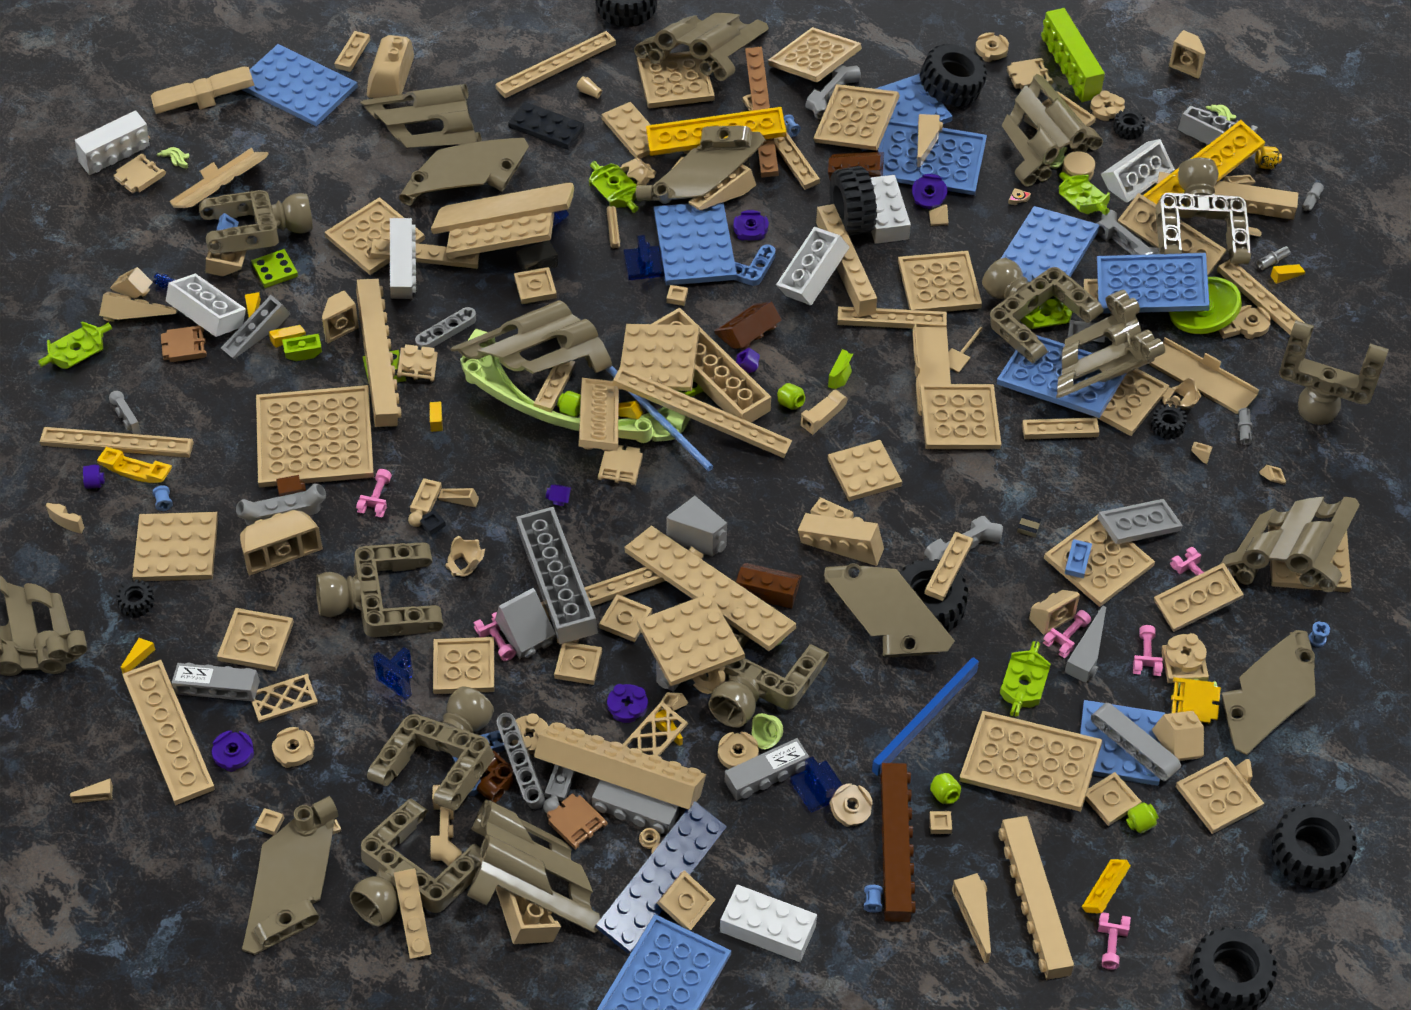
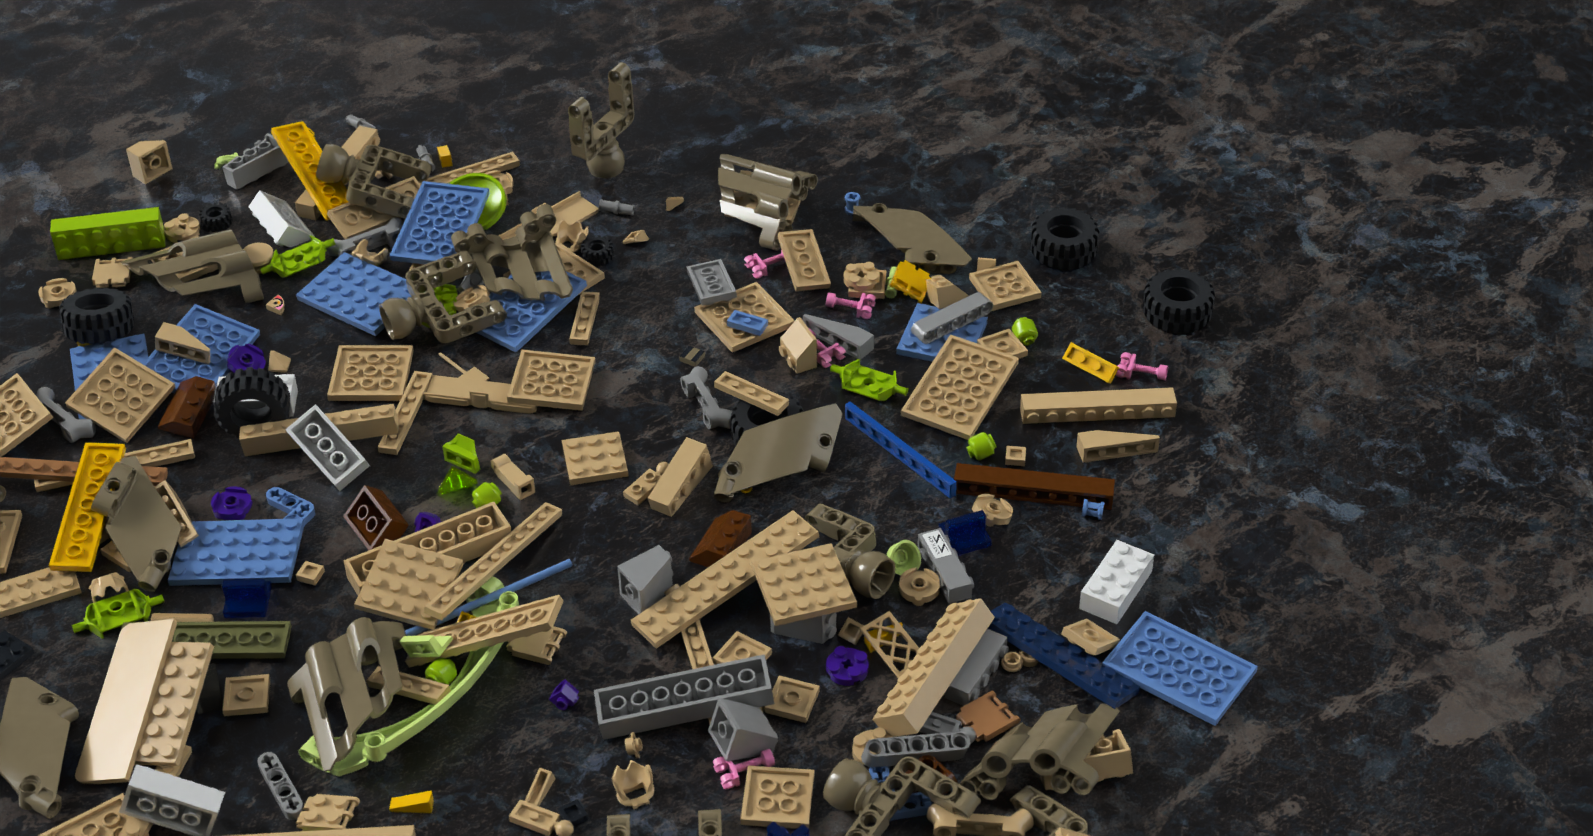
camera: 80 degrees left, 10 degrees down
(509, 548) = (633, 745): none -> tan plate
(586, 384) = (425, 645): none -> yellowish green panel
(591, 247) = (237, 638): none -> olive plate
(807, 370) = (455, 481): none -> clear neon green slope
(1052, 332) = (471, 297): none -> tan plate
(1103, 241) = (370, 257): none -> tan helmet

